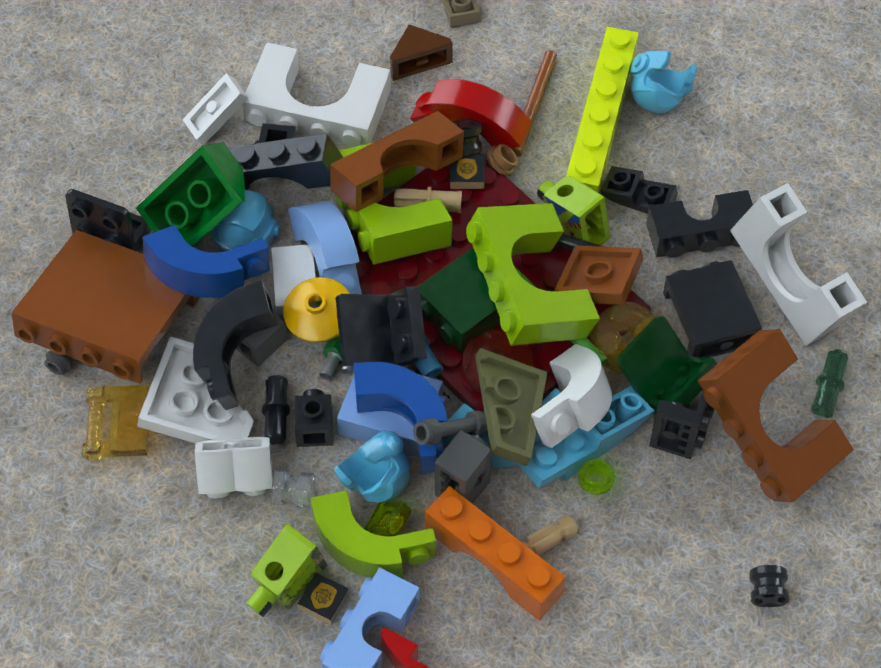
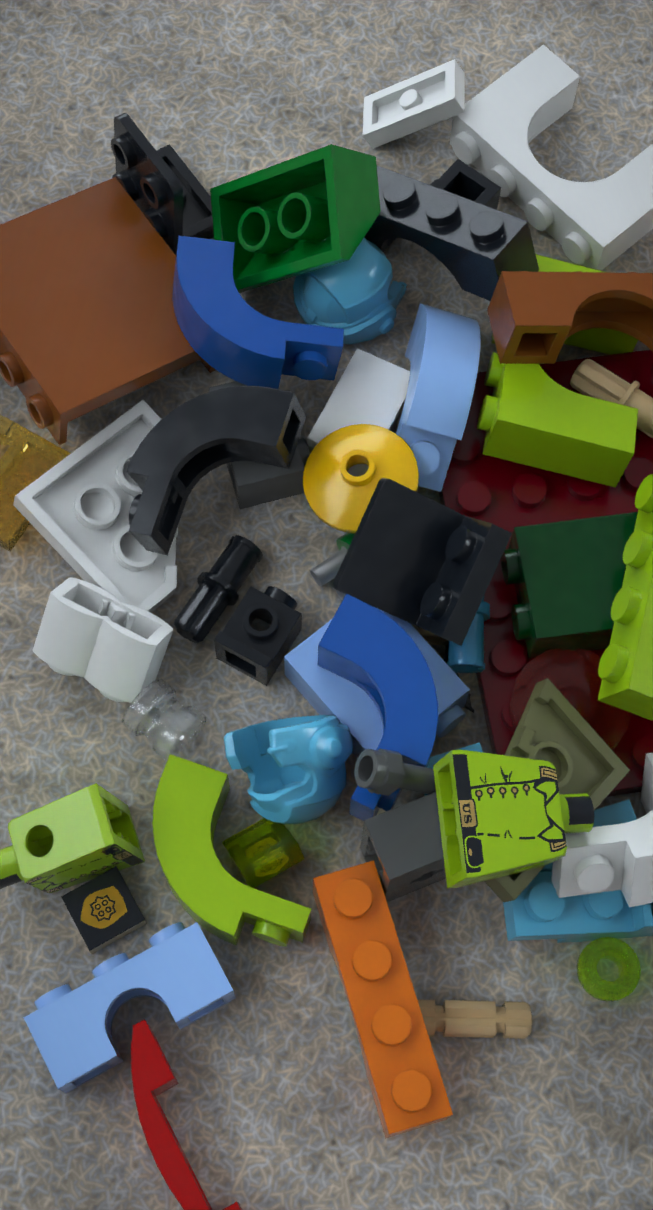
camera: 30 degrees right, 10 degrees up
(500, 417) = (503, 815): none -> lime torso

